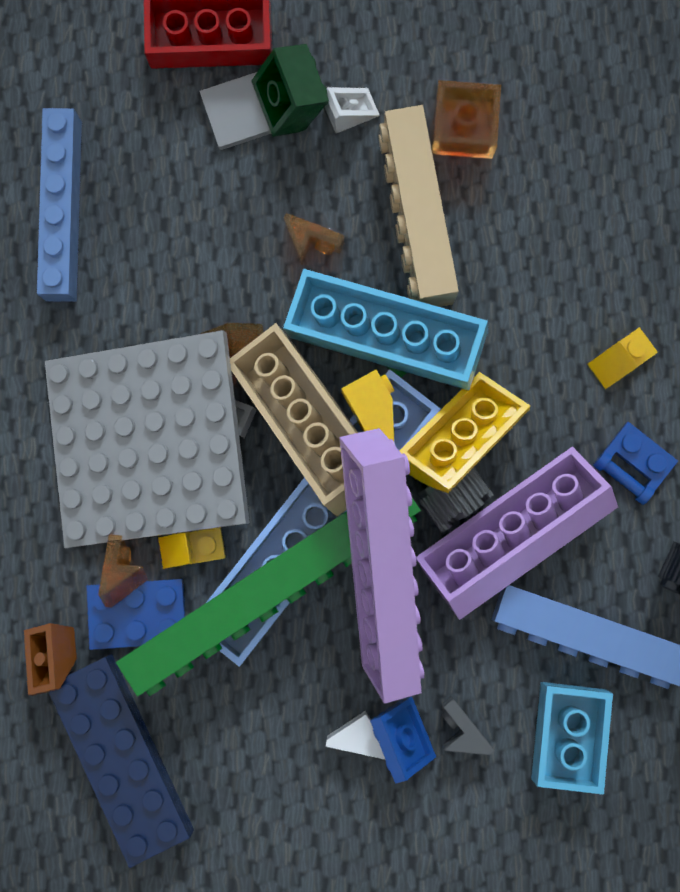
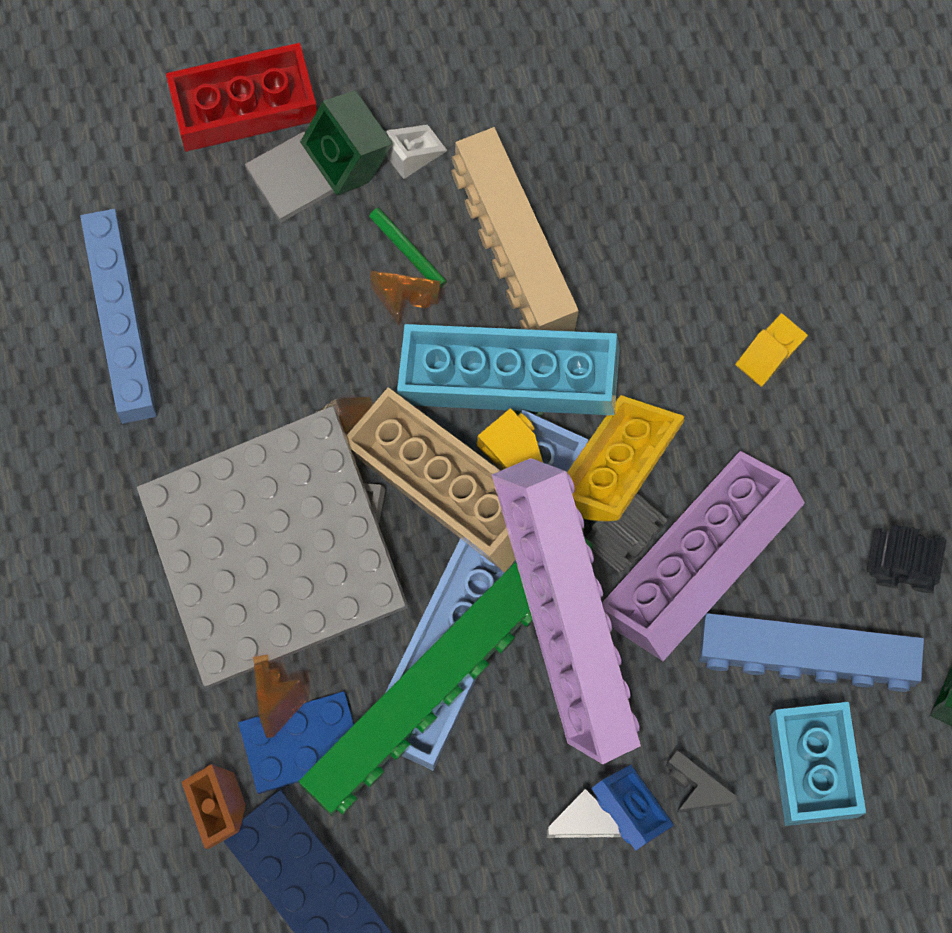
camera: 20 degrees left, 10 degrees down
(191, 547) = (346, 655): yellow slope -> none
(324, 196) = (406, 246): none -> green bar
(466, 119) = (542, 134): clear orange brick -> none
(642, 455) = (819, 448): blue plate -> none

